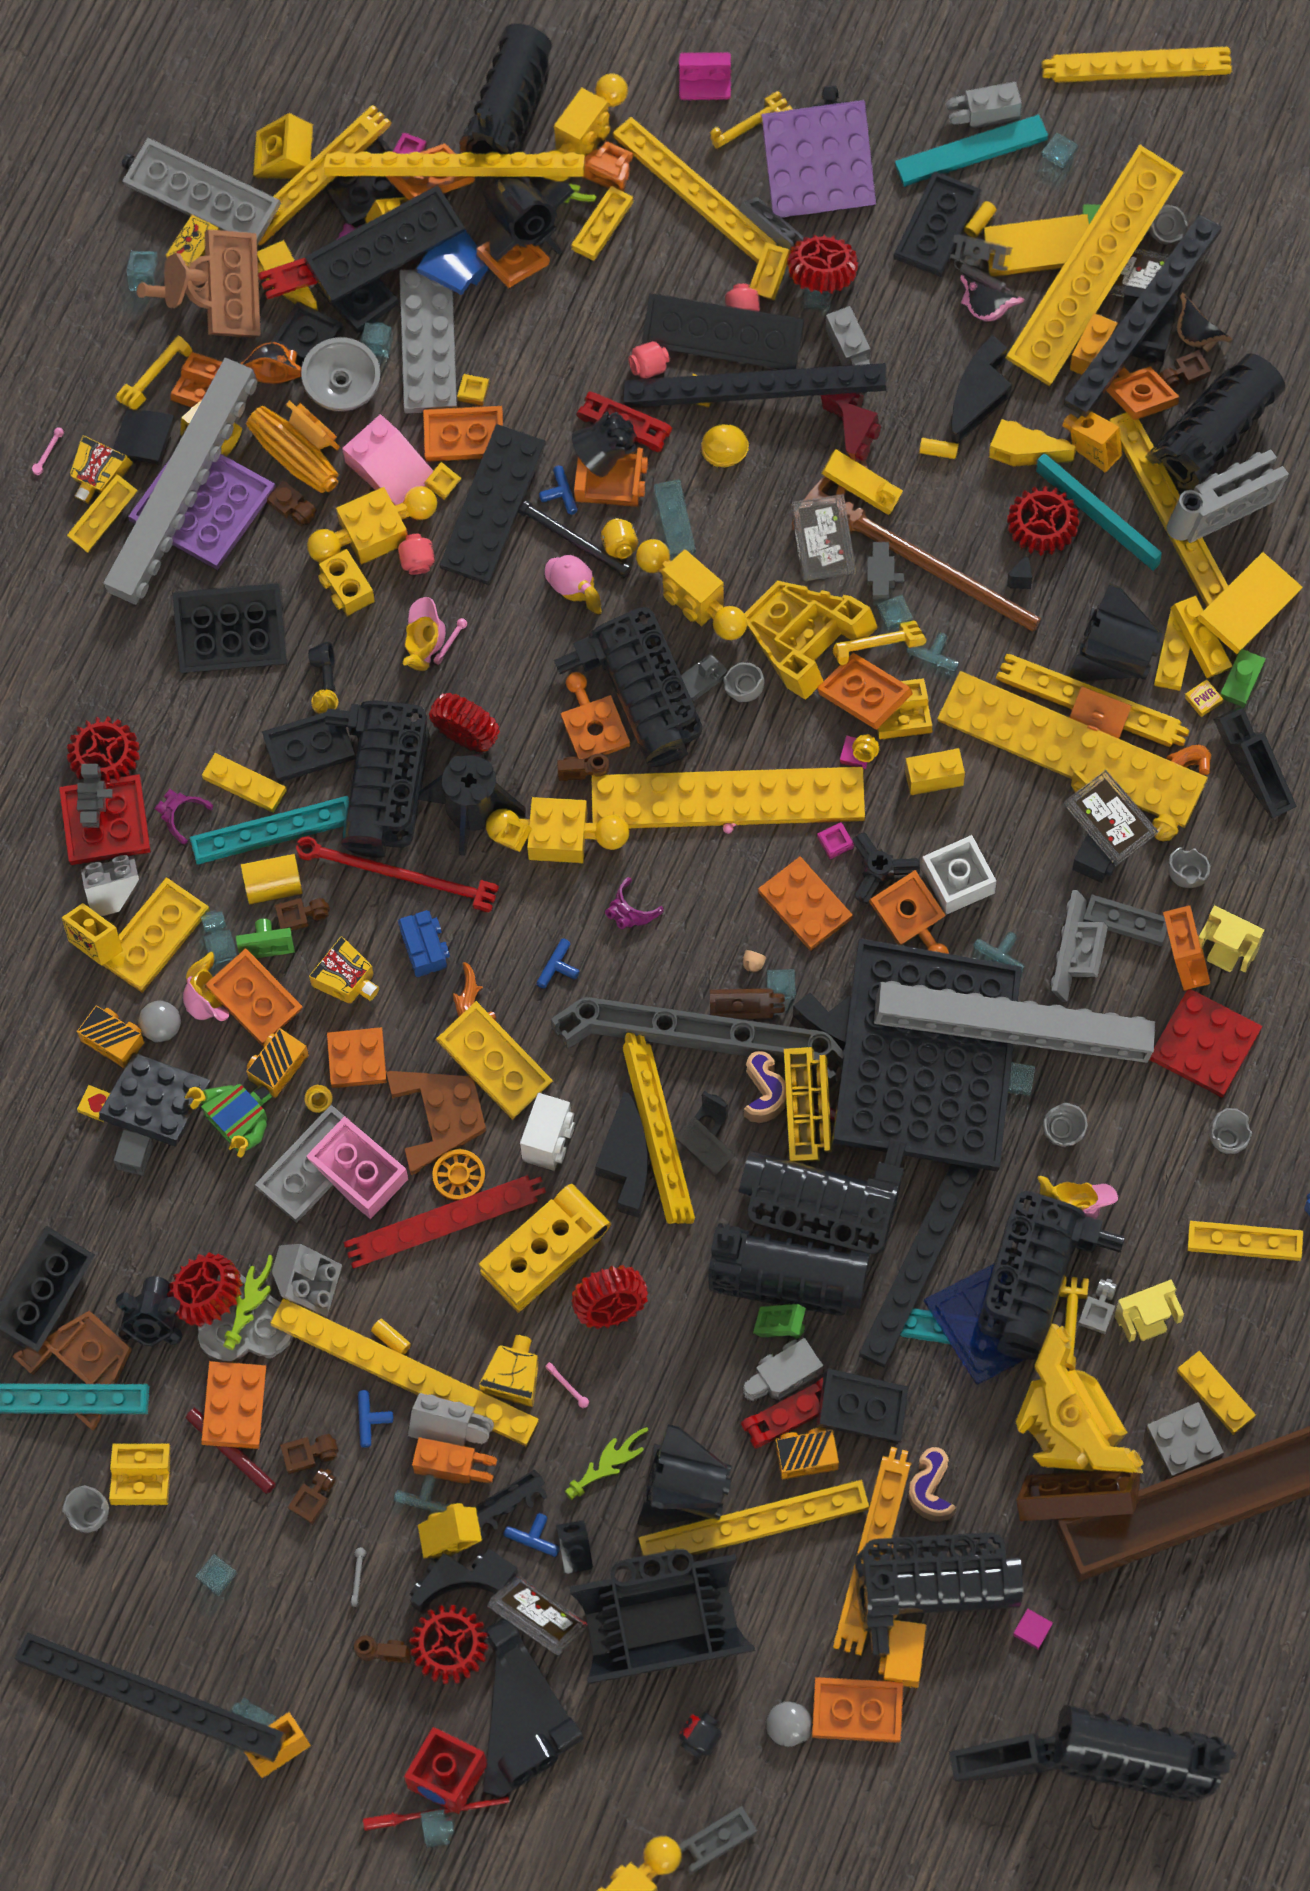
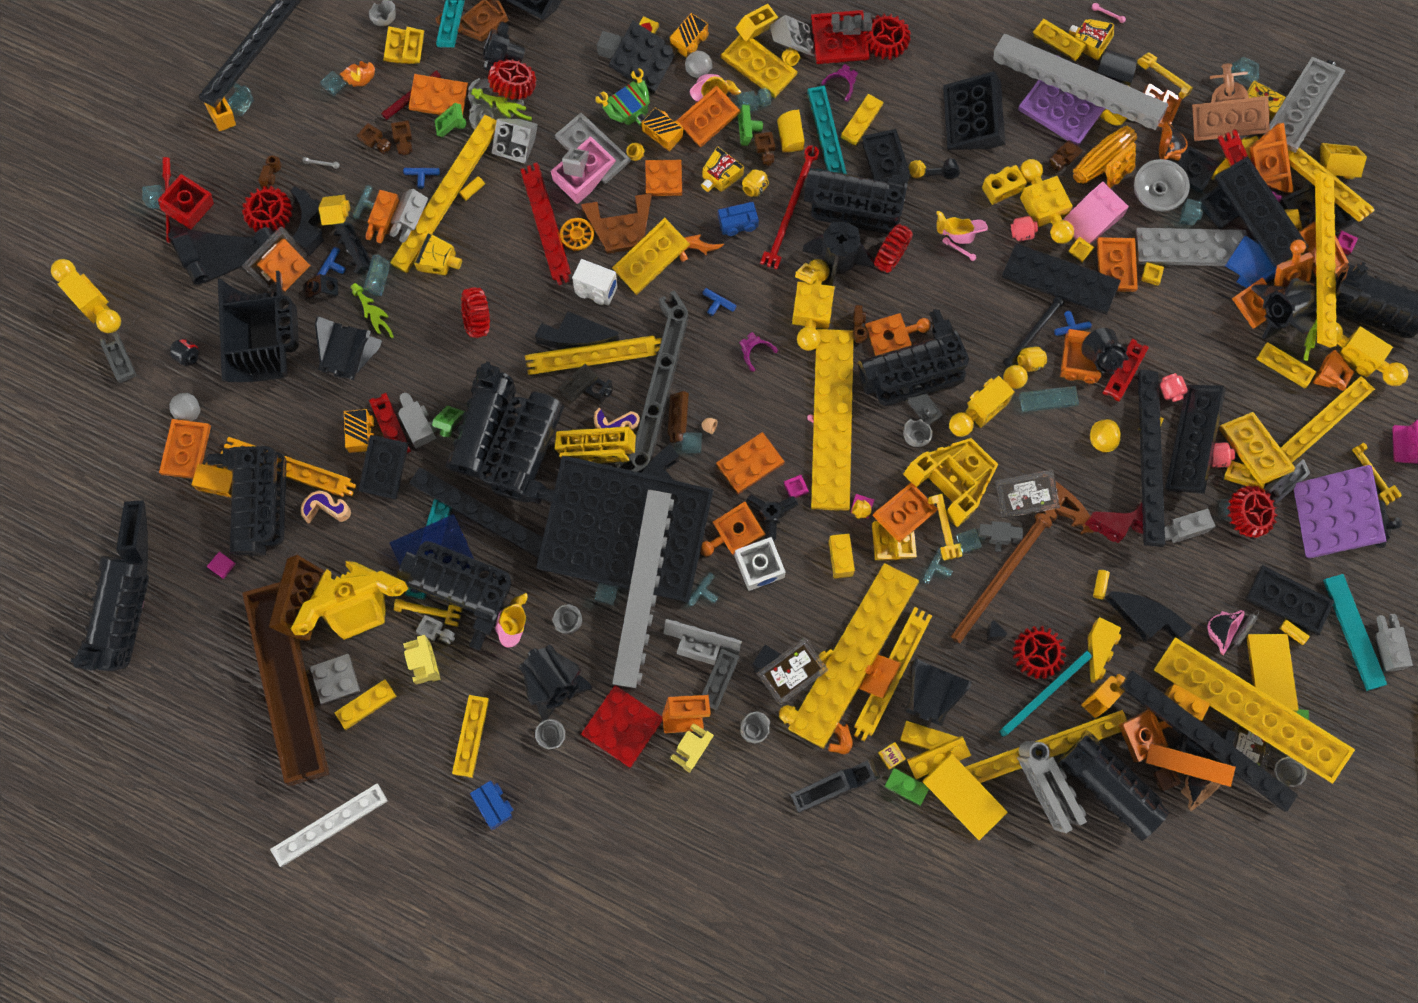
camera: 90 degrees right, 5 degrees up
(143, 889) = (790, 56): none -> yellow plate
(199, 1532) = (358, 75): none -> orange hair
(280, 1378) = (450, 119): none -> bright green tile
(293, 232) = (1272, 159): none -> orange wing
(354, 1168) = (575, 162): none -> light grey slope
(363, 922) = (755, 183): none -> yellow head
(471, 211) = (1298, 267): none -> orange plate
(541, 1458) = (377, 275): none -> clear light blue plate
(544, 1599) = (287, 261): none -> orange plate
(567, 1212) = (539, 293): yellow hinge -> none
(573, 581) = (1000, 327): bright pink hair -> none
(583, 1402) = (414, 299): bright pink hinge -> none
(731, 257) = (1256, 448): none -> yellow tile
(759, 1521) = (317, 400): yellow plate -> none
(861, 482) = (1072, 525): yellow hinge -> none
(968, 245) = (1268, 629): dark grey piece -> none
(1059, 150) = (1356, 697): clear light blue plate -> none
(1157, 1131) = (551, 679): none -> black brick
(1179, 334) = (1190, 765): none -> orange slope

